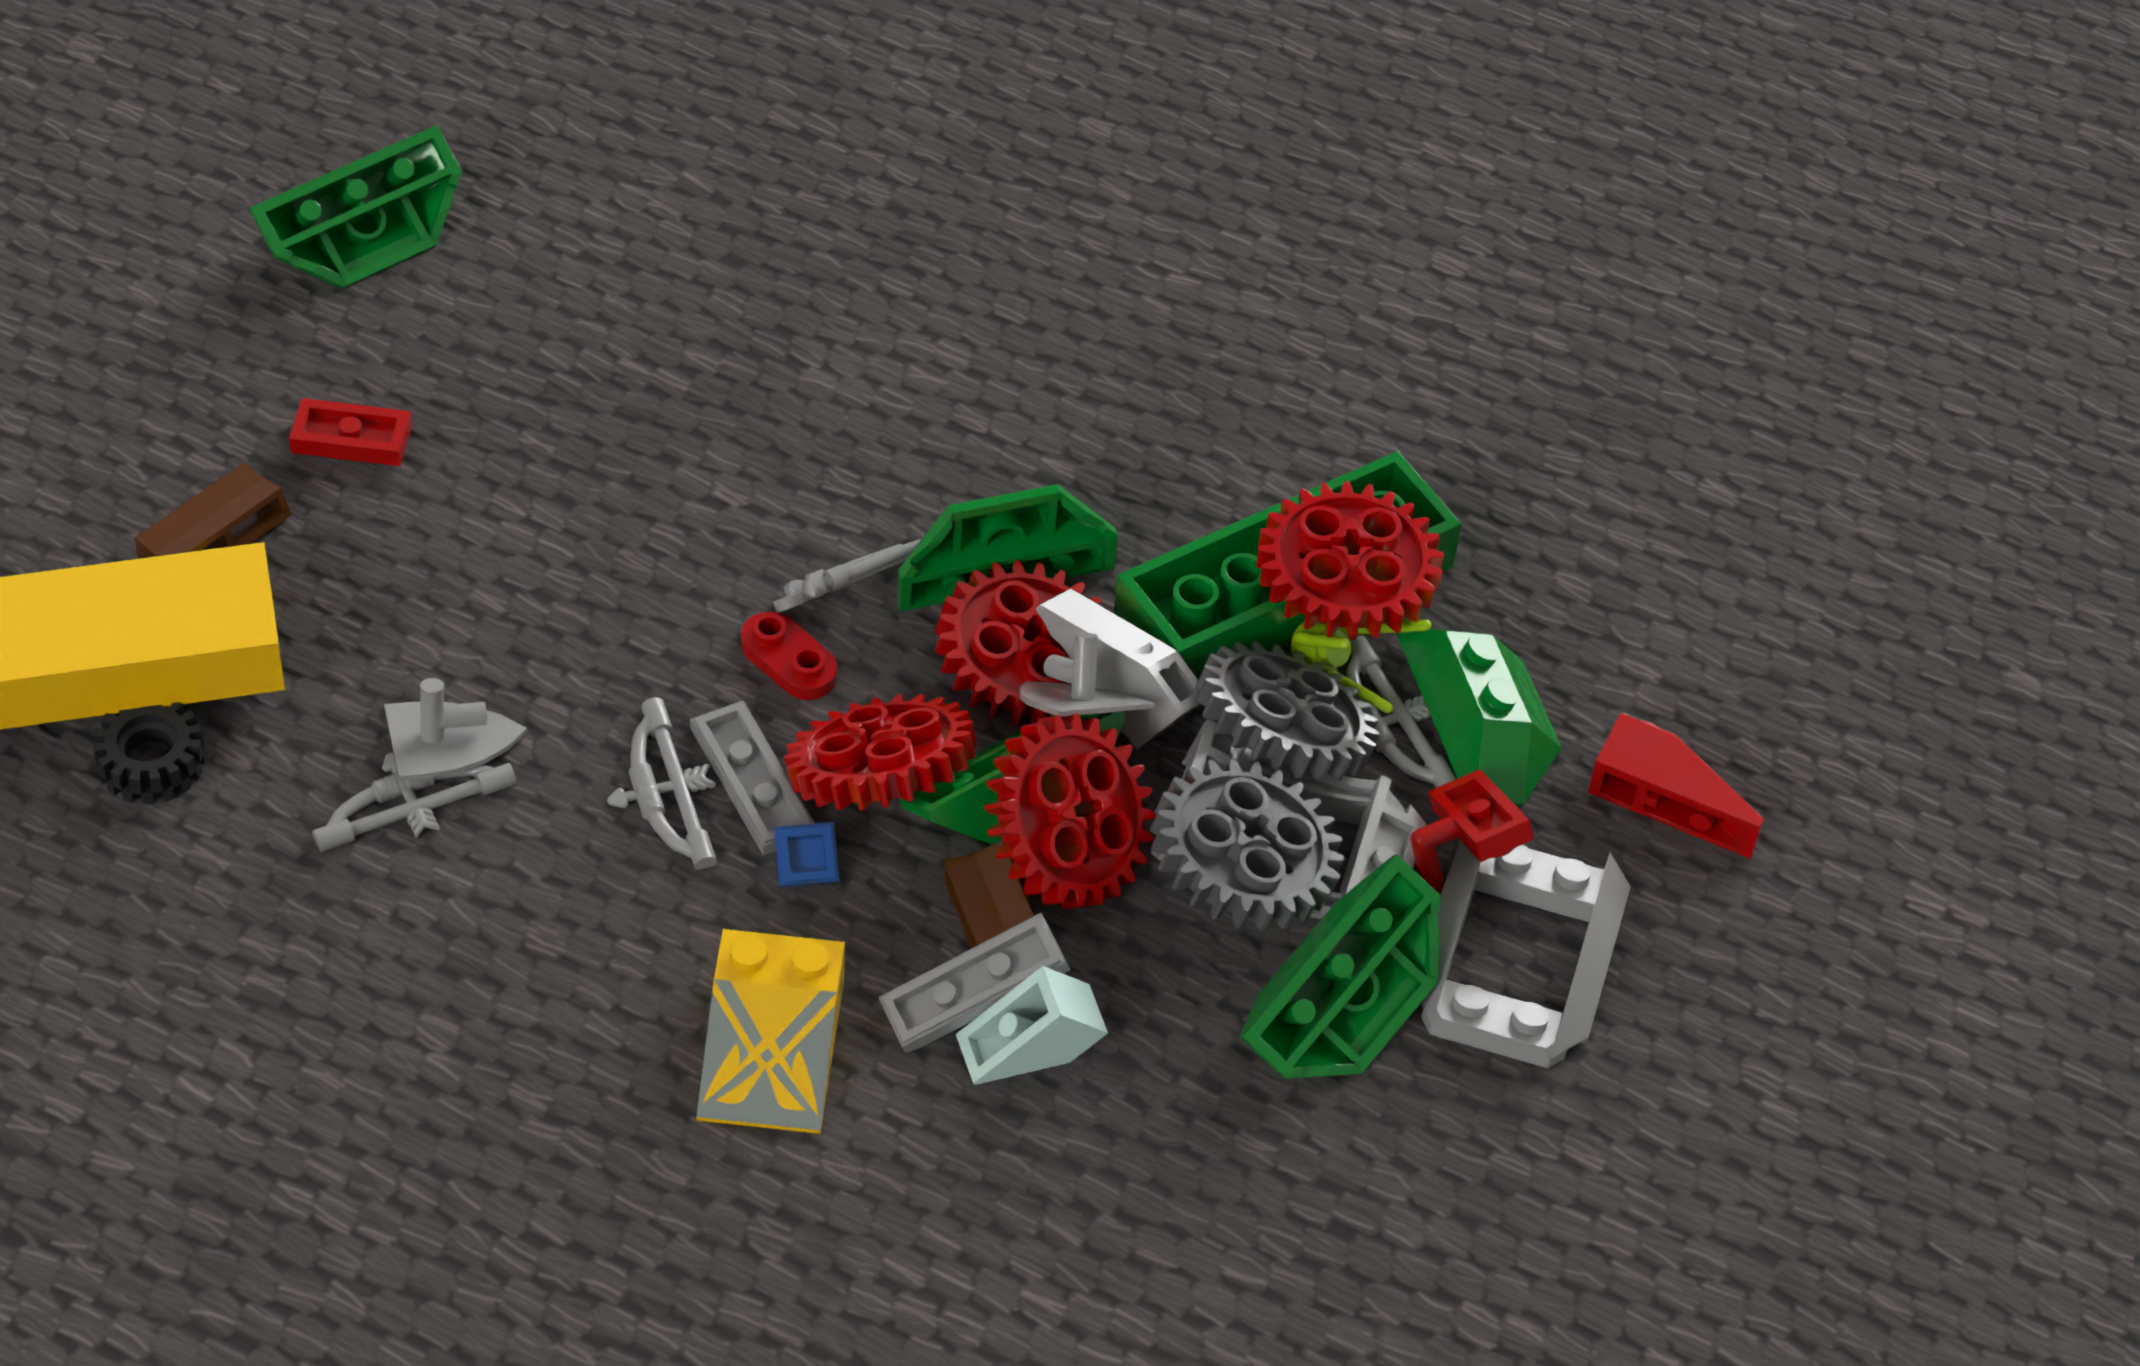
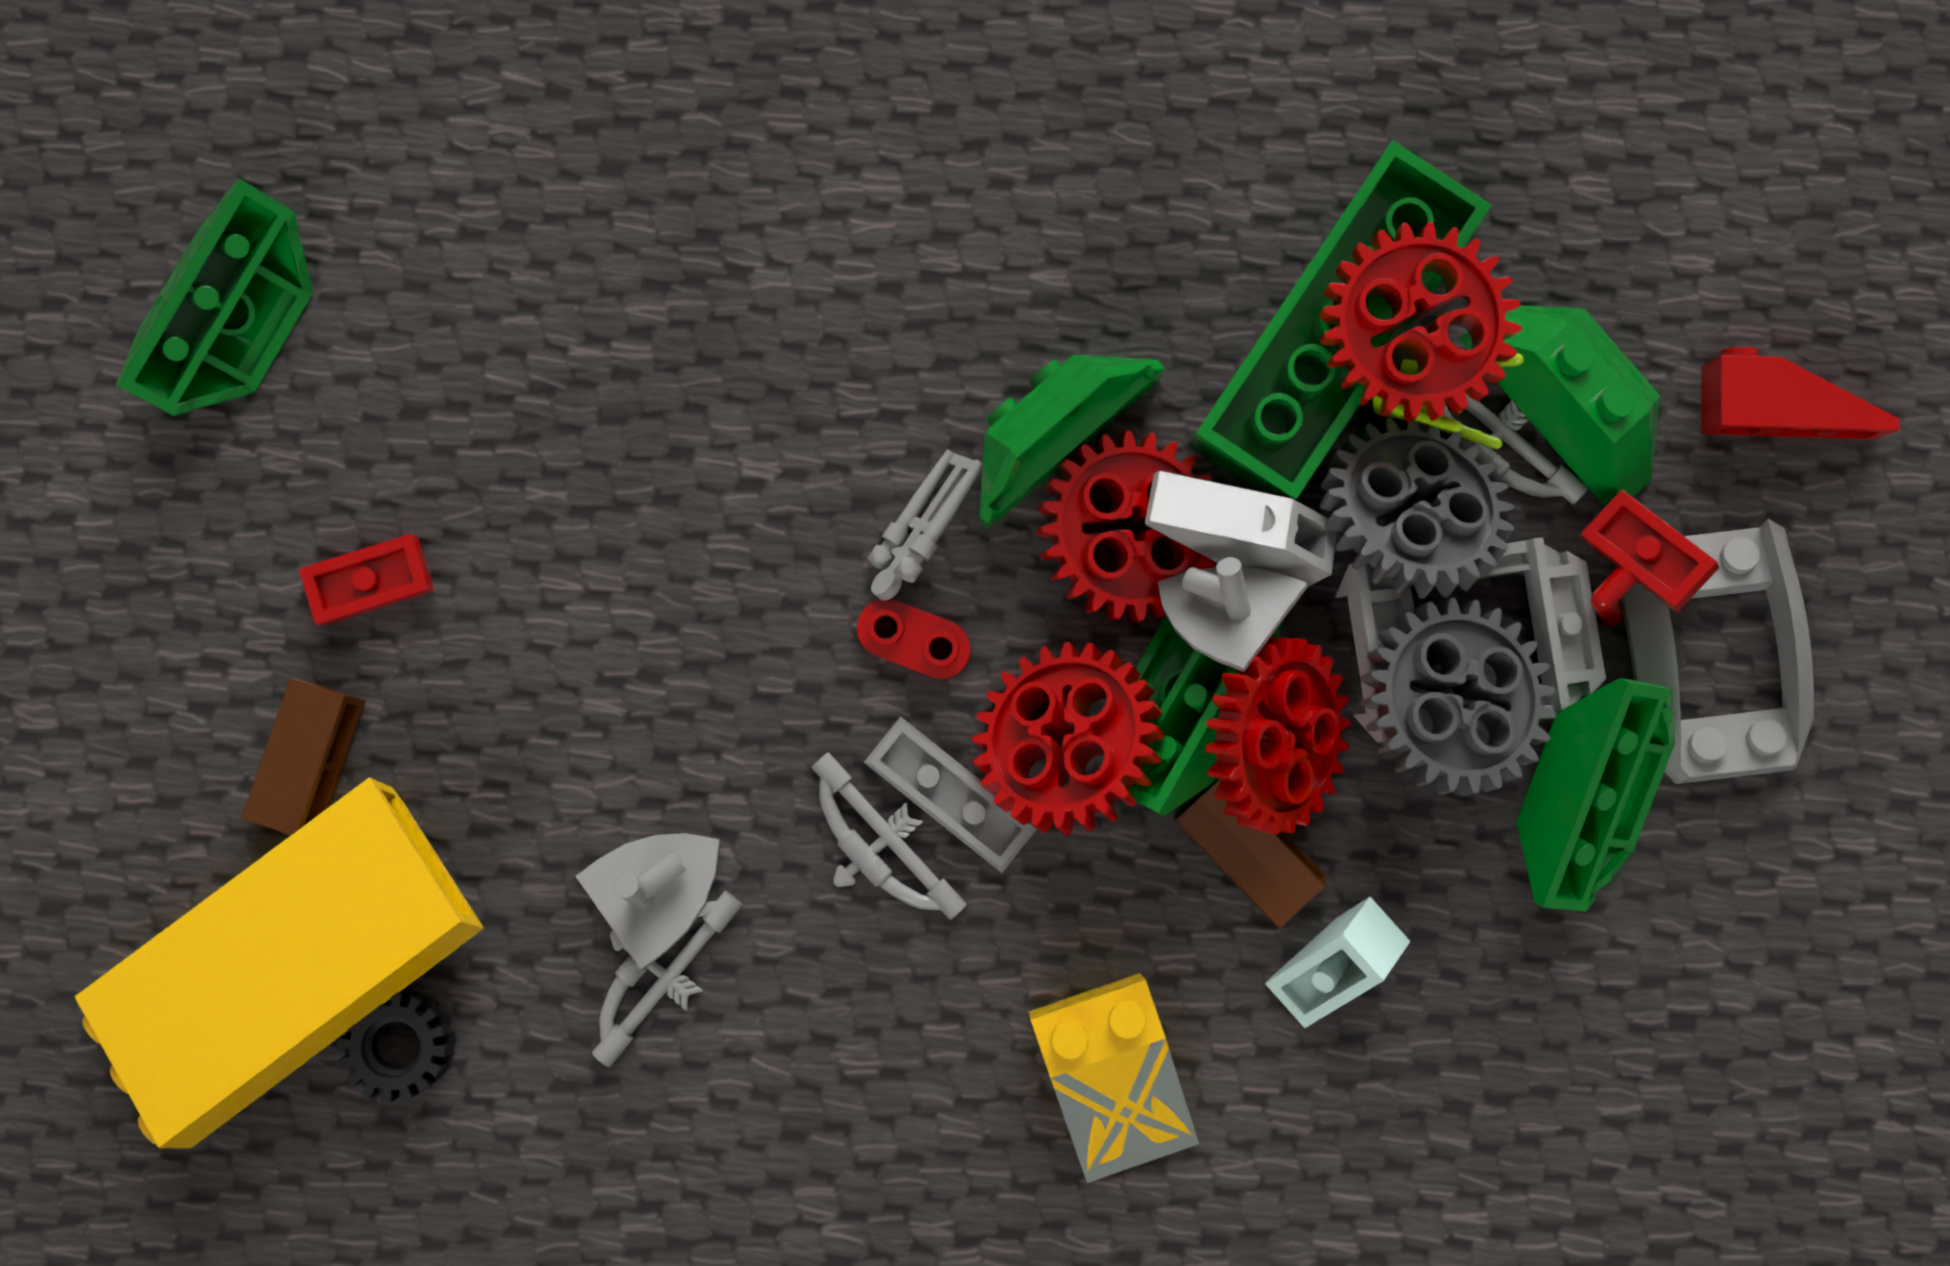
camera: 20 degrees left, 35 degrees up
(806, 855) = (1046, 866): blue tile -> none
(970, 983) = (1270, 945): light grey tile -> none

